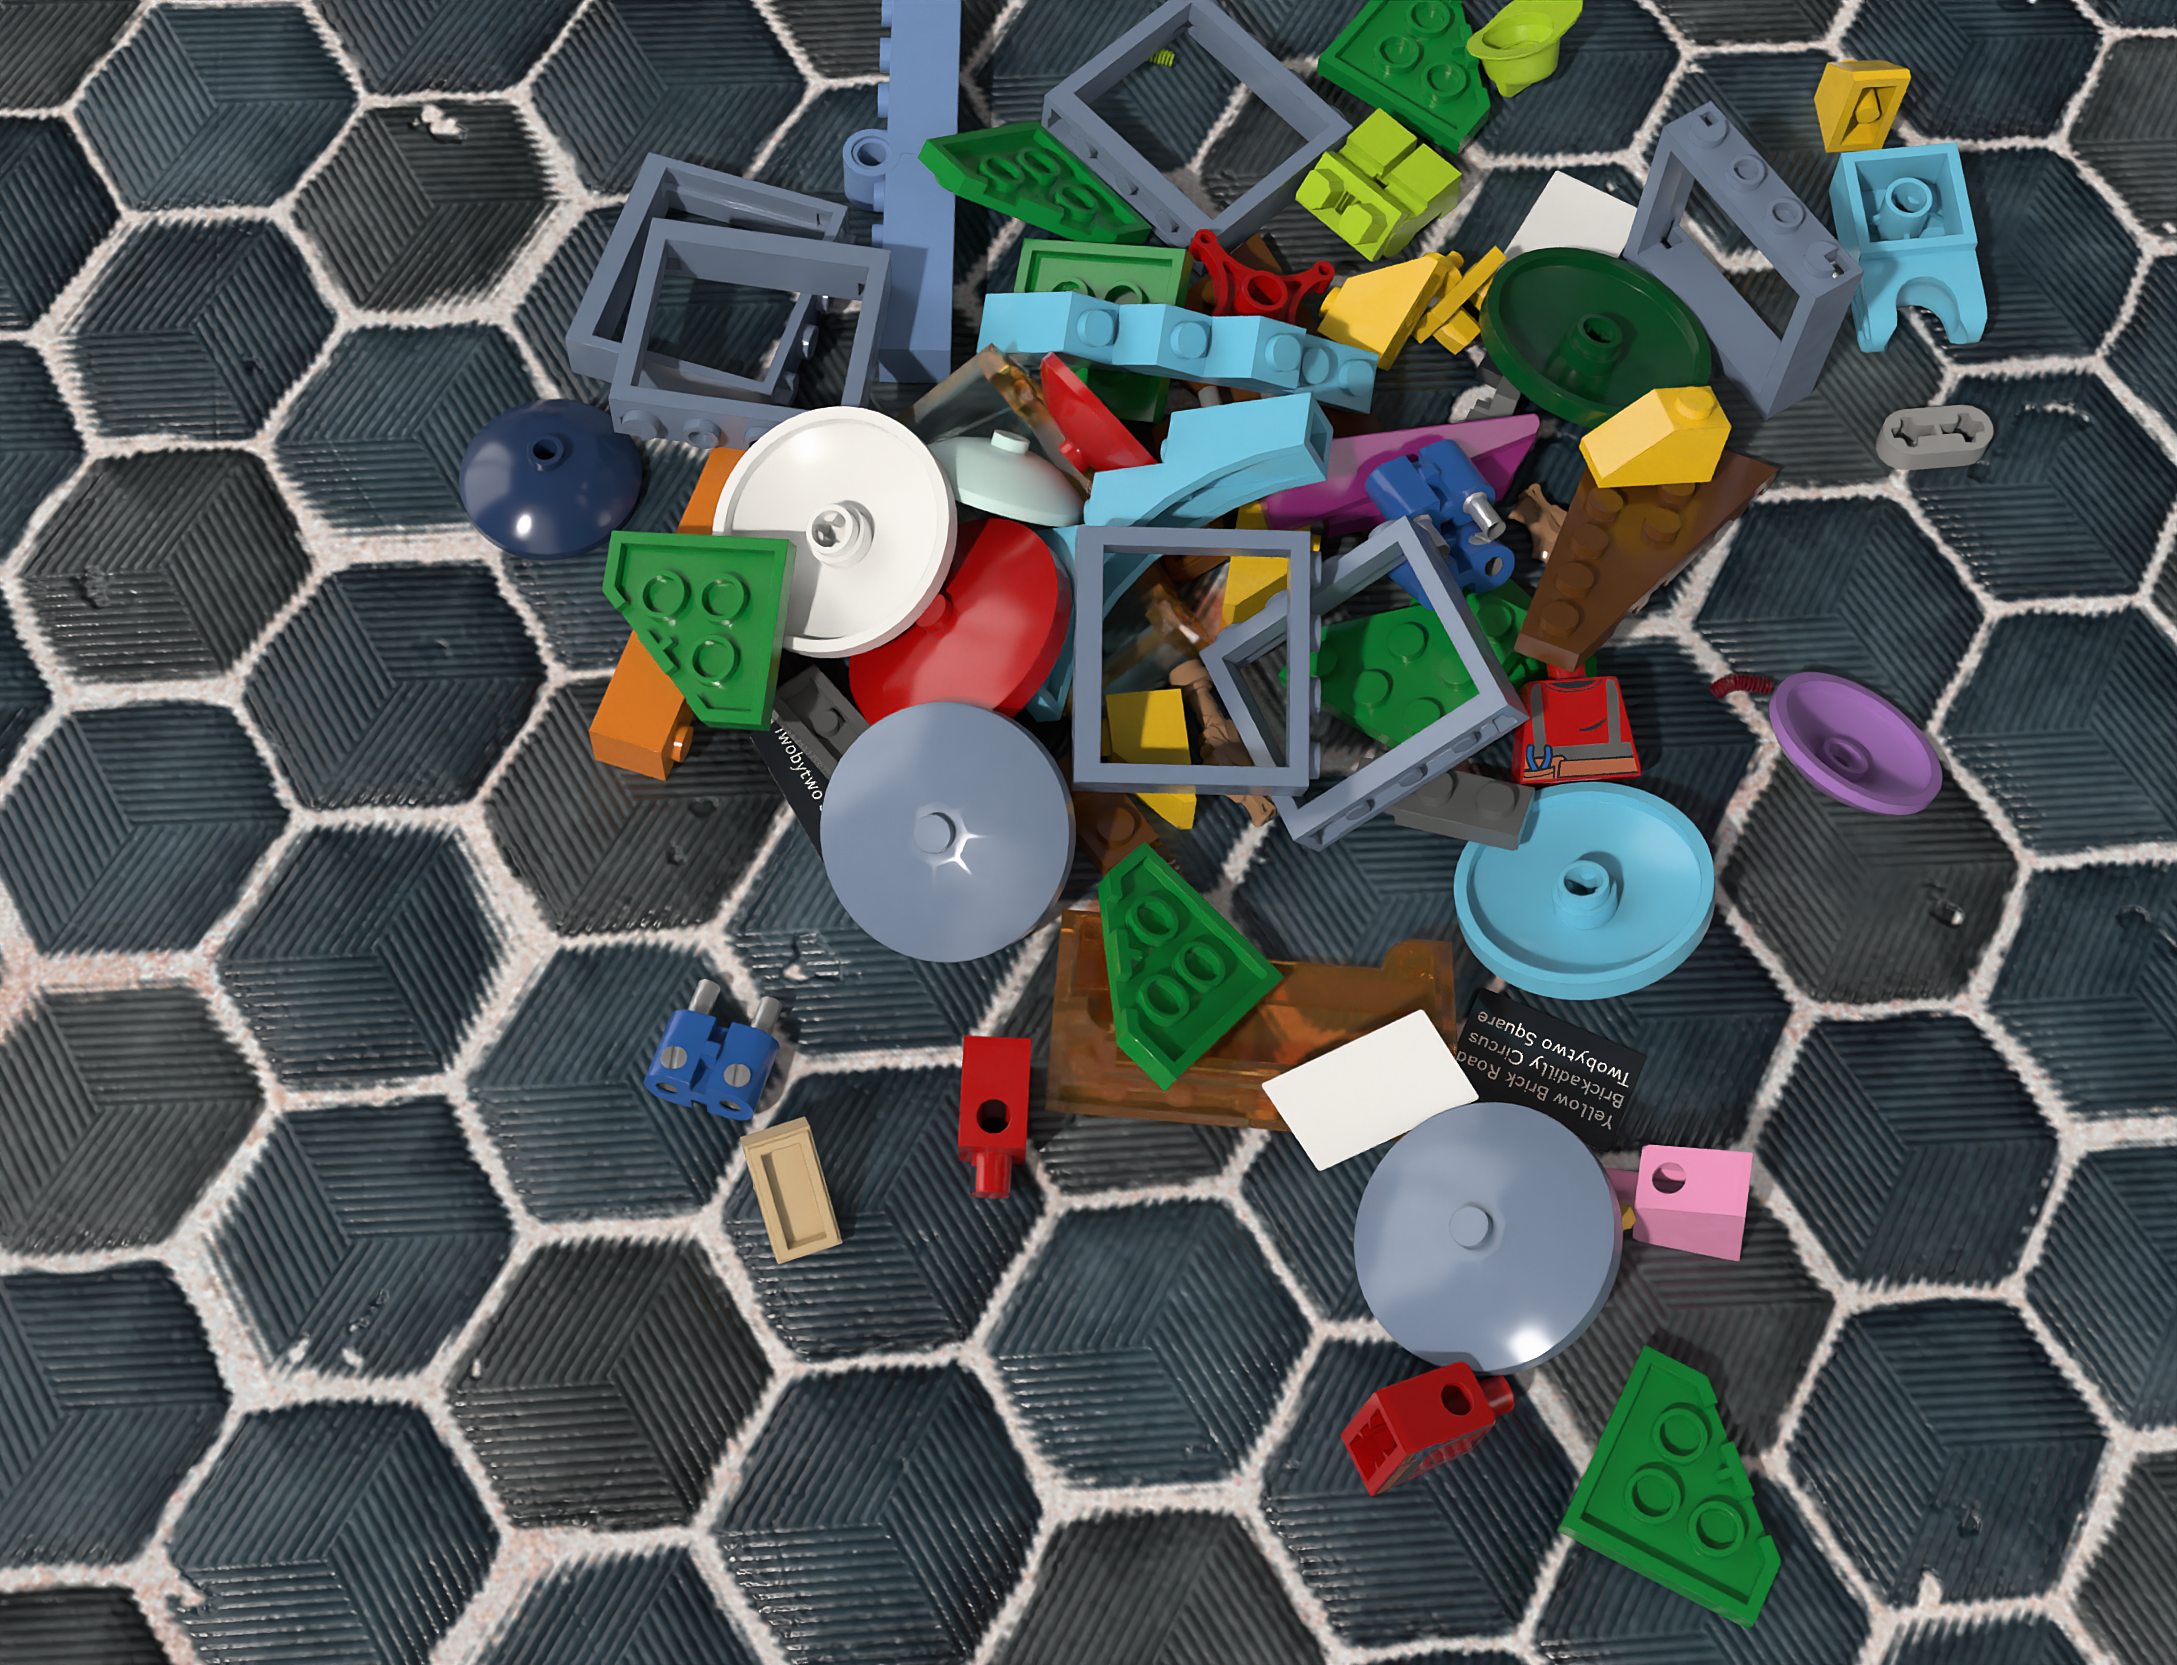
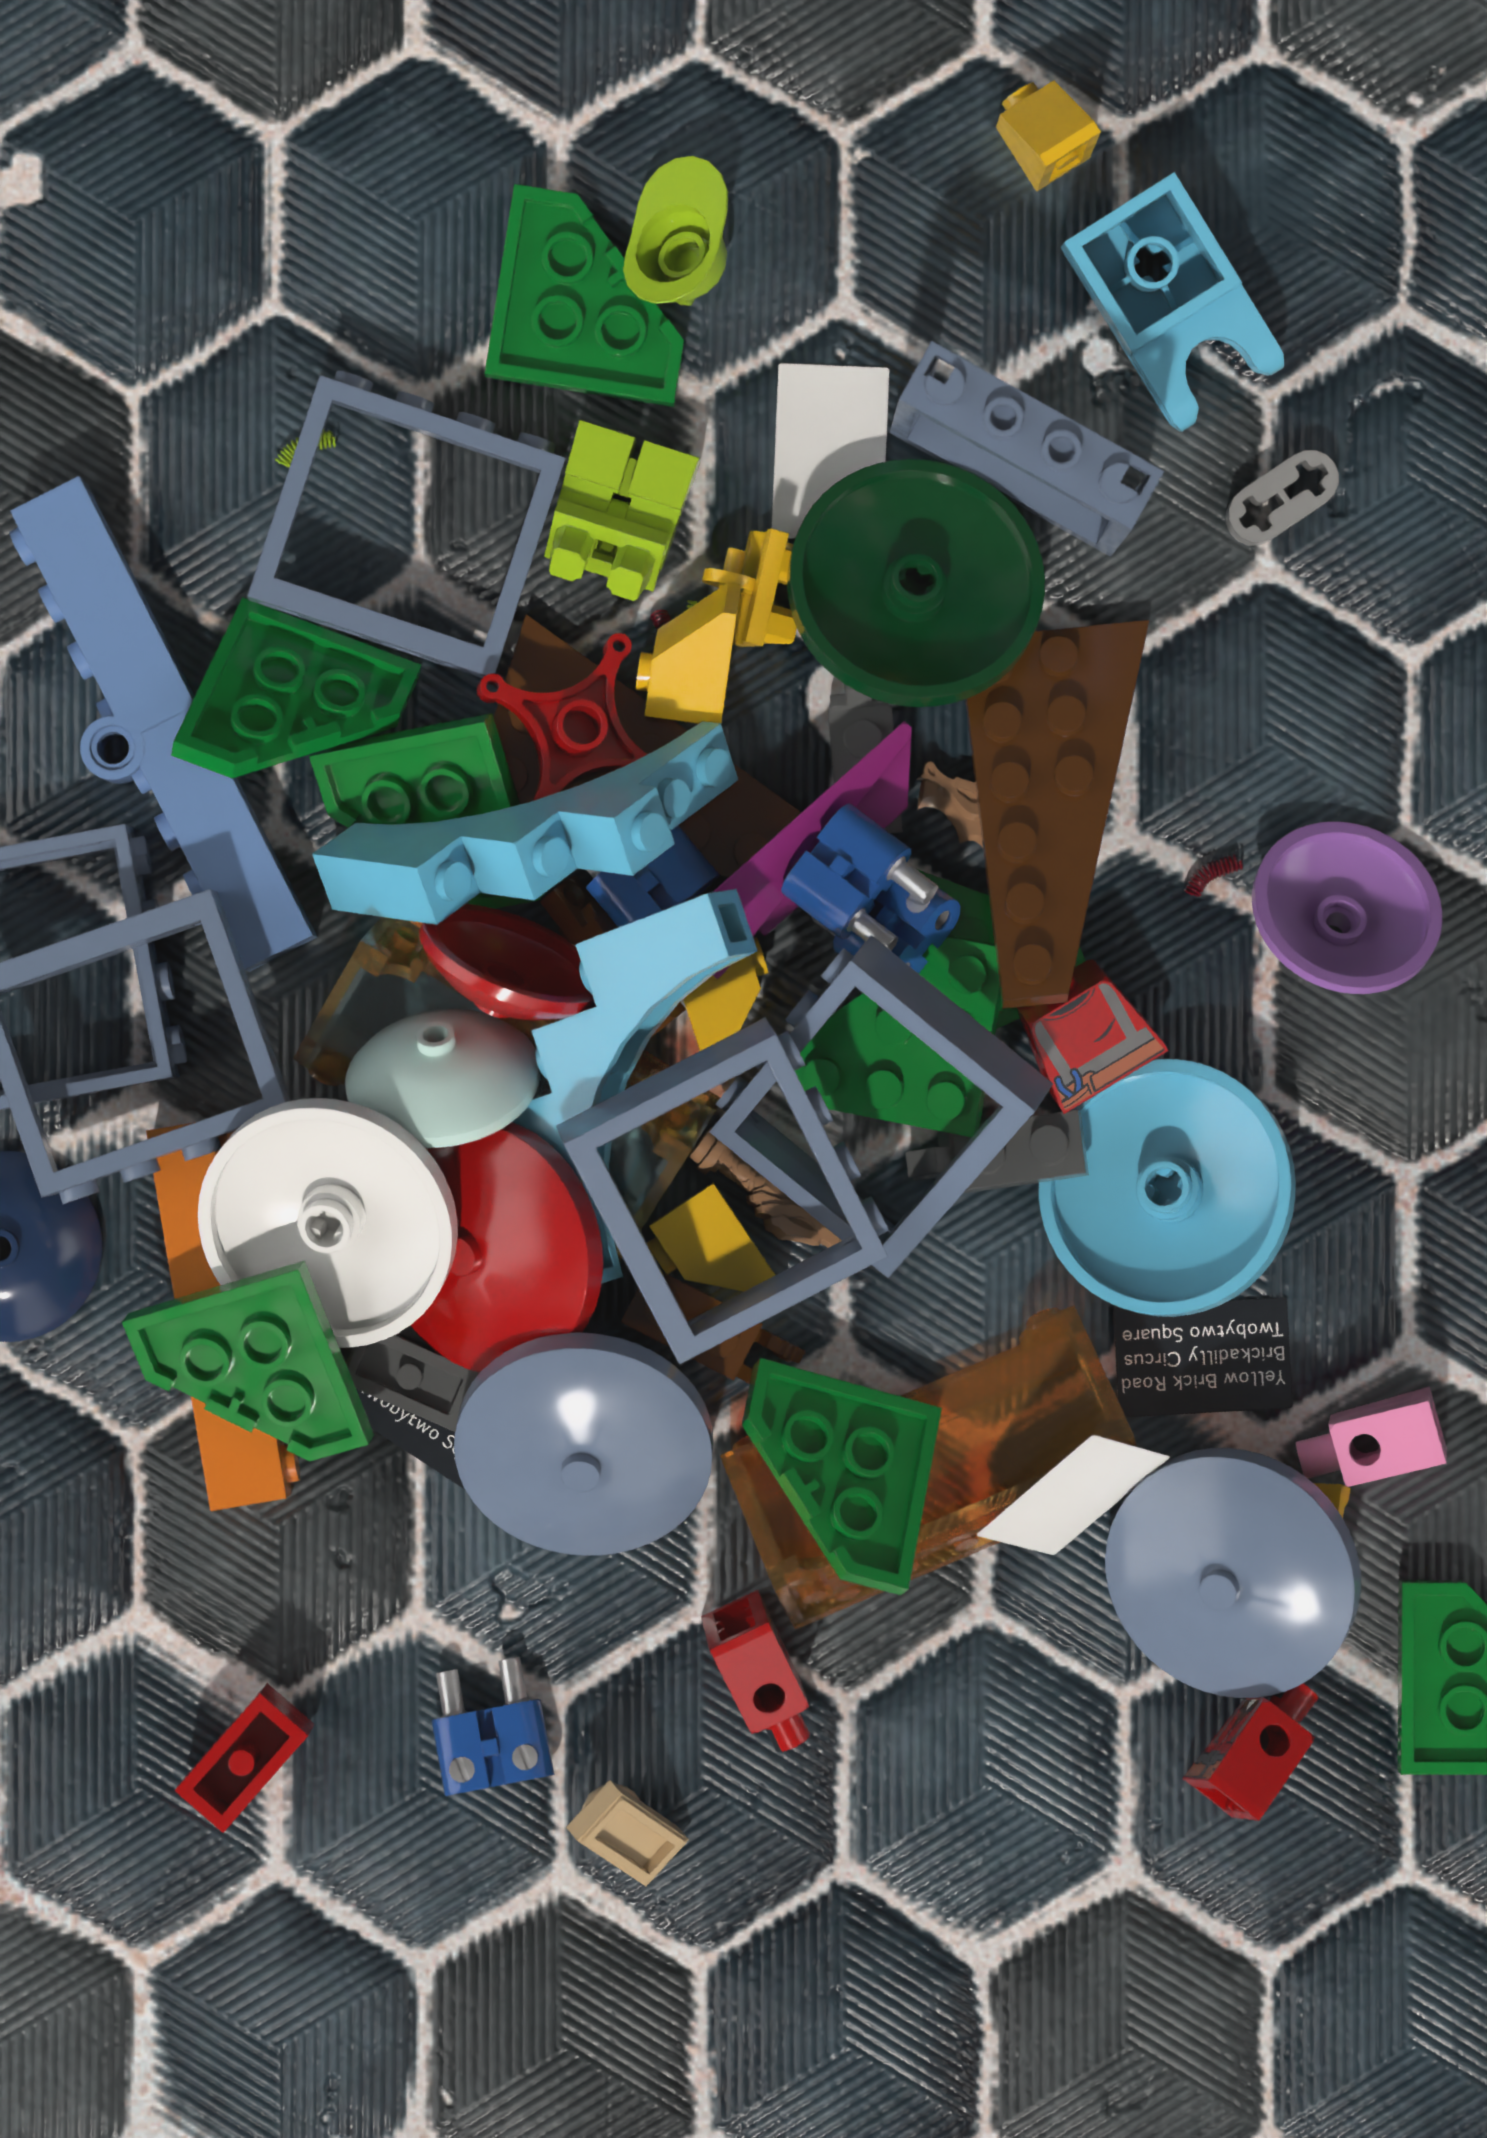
camera: 20 degrees left, 25 degrees up
(487, 949) = (245, 1758): none -> red brick
(1659, 440) = (1030, 691): yellow slope -> none

